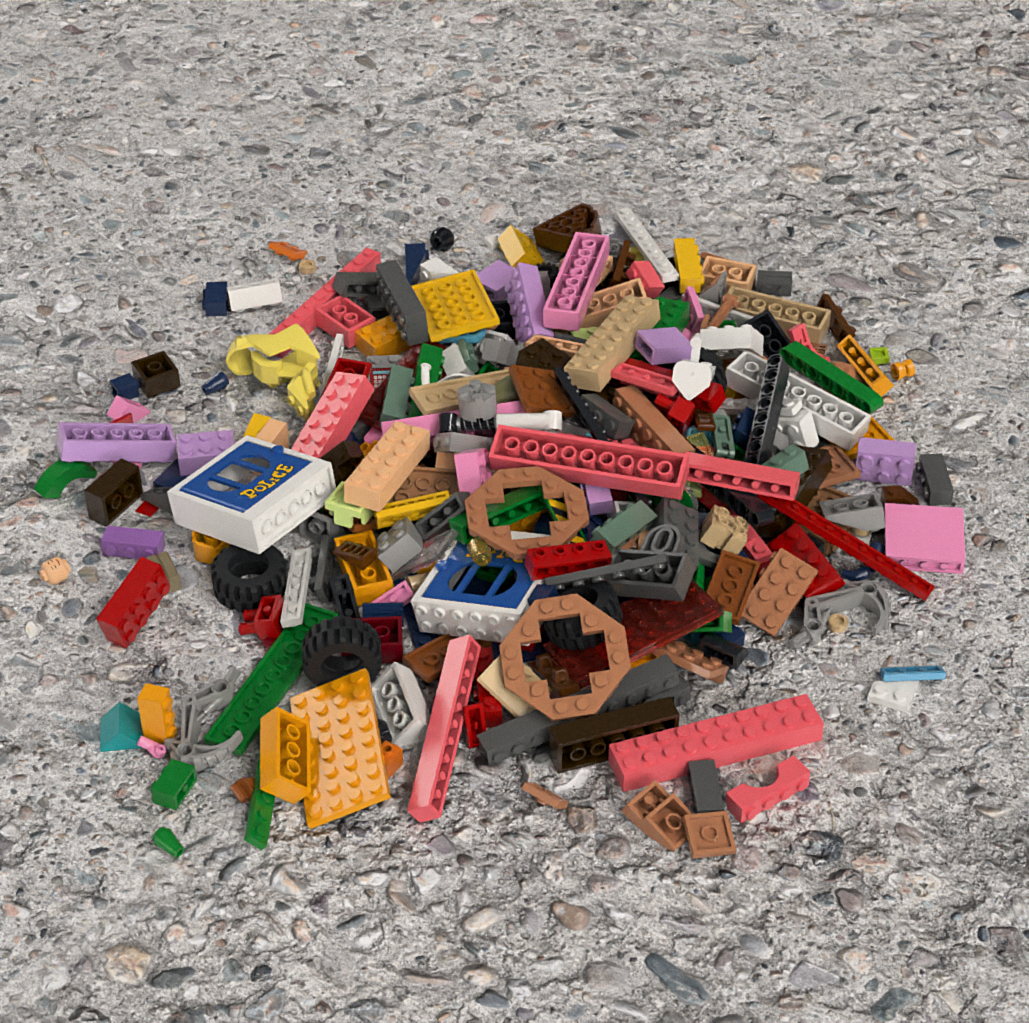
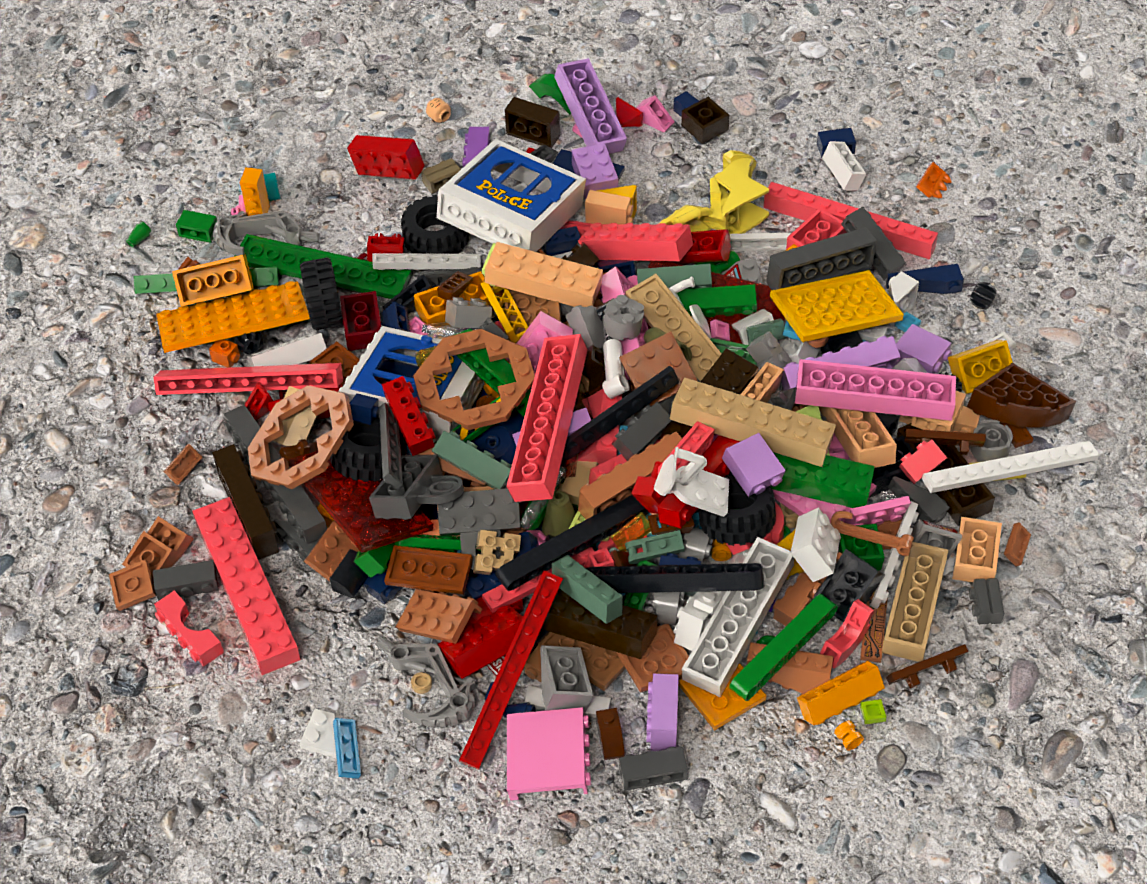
camera: 85 degrees right, 10 degrees up
(215, 383) = (708, 165): dark blue cone -> none
(307, 266) = (913, 201): tan tile -> none
(688, 264) = (964, 500): yellow brick -> none
(743, 476) = (554, 548): coral brick -> none

